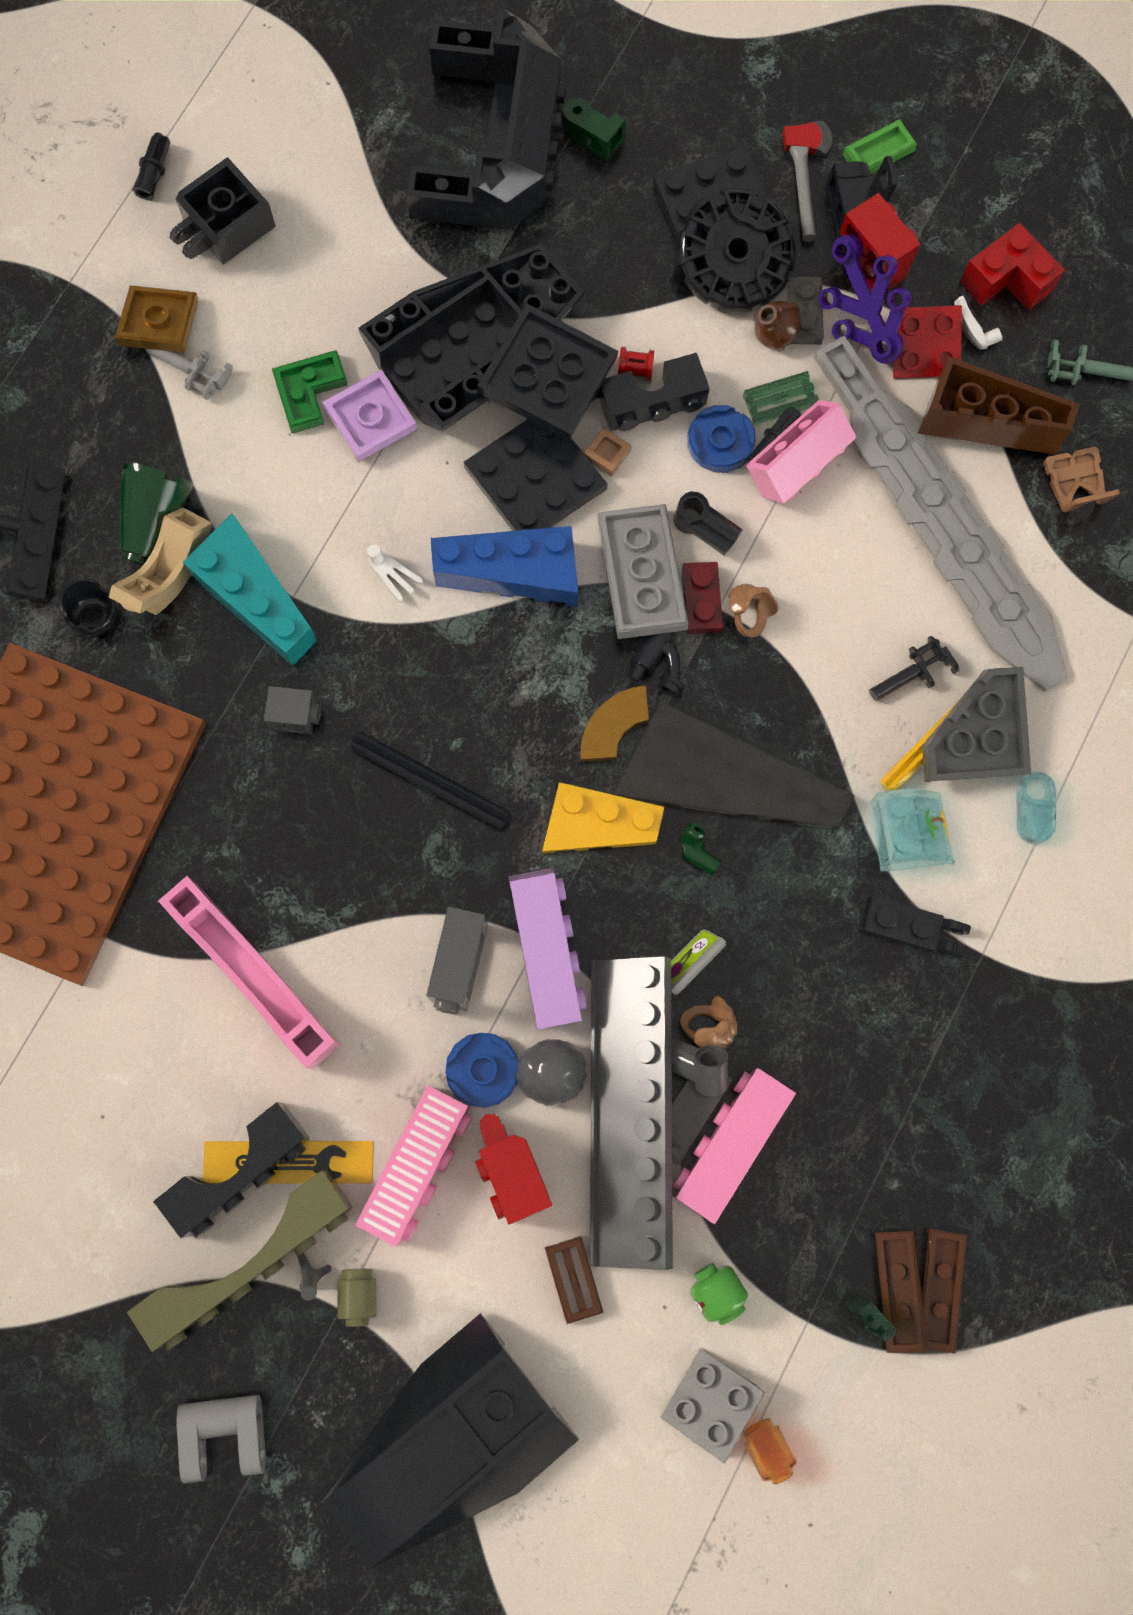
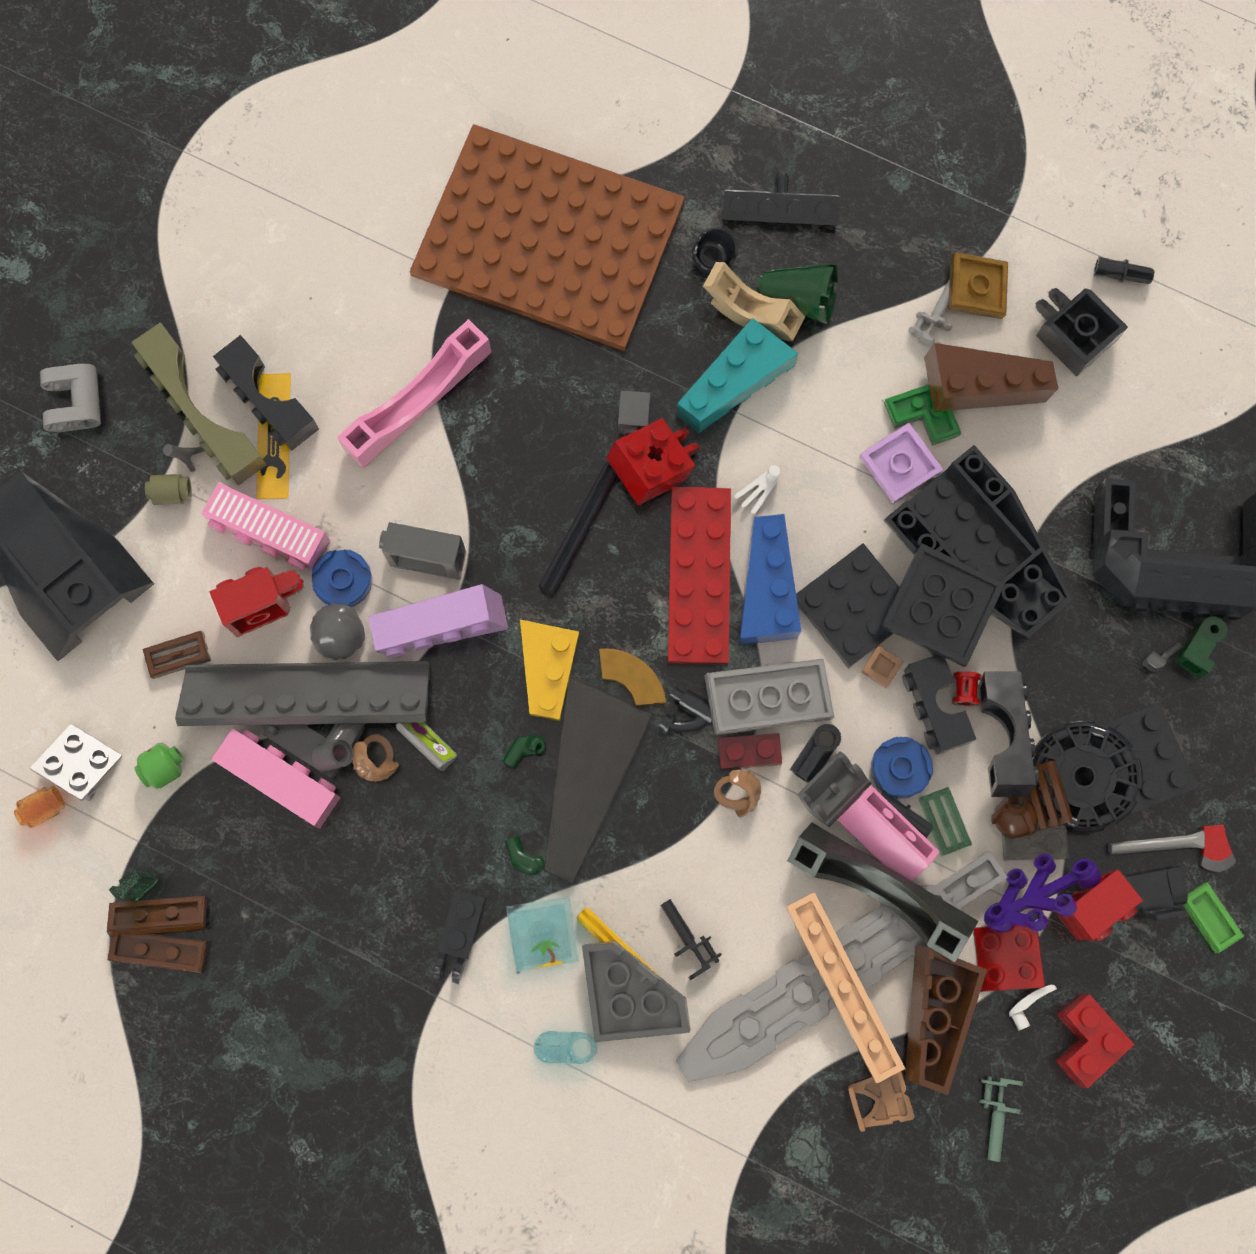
camera: 90 degrees right, 0 degrees up
(274, 321) = (983, 379): none -> reddish brown wedge
(354, 688) = (652, 460): none -> red hinge
(493, 644) = (699, 576): none -> red plate
(607, 176) = (1155, 661): none -> dark grey hand
(651, 322) = (1004, 699): none -> black arch
(750, 505) = (834, 789): none -> dark grey hinge
(785, 281) = (1060, 795): none -> reddish brown tile
(829, 853) = (523, 861): none -> dark green arm
(899, 402) = (934, 920): none -> pearl dark grey arch
(965, 504) = (845, 988): none -> light nougat plate

